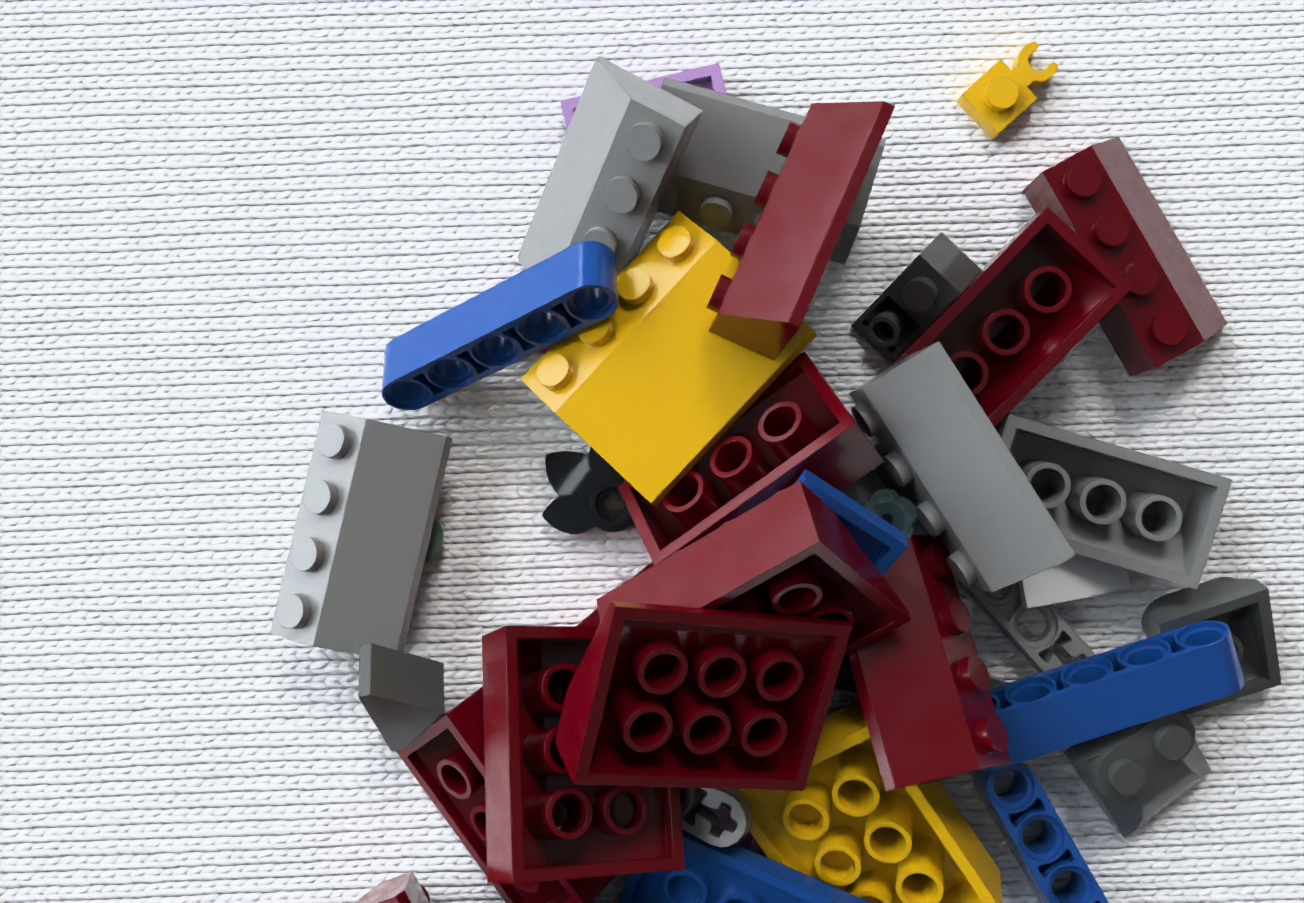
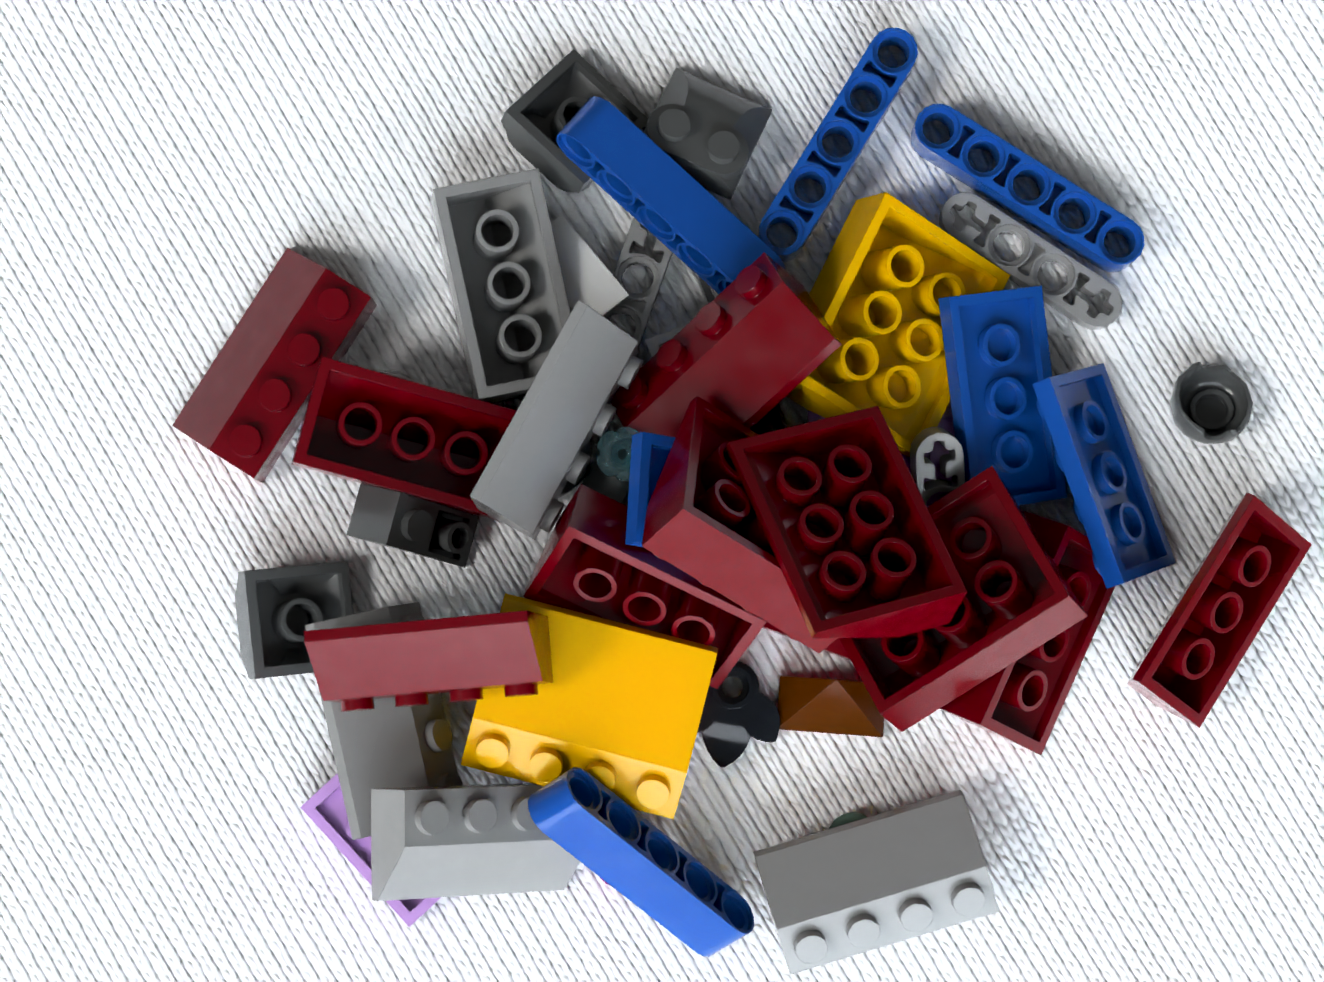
camera: 120 degrees left, 0 degrees up
(400, 692) = (985, 771): dark grey slope -> none
(546, 581) = (827, 707): none -> reddish brown slope
(913, 149) = (276, 607): none -> dark grey slope
(1004, 93) = (189, 546): yellow plate -> none

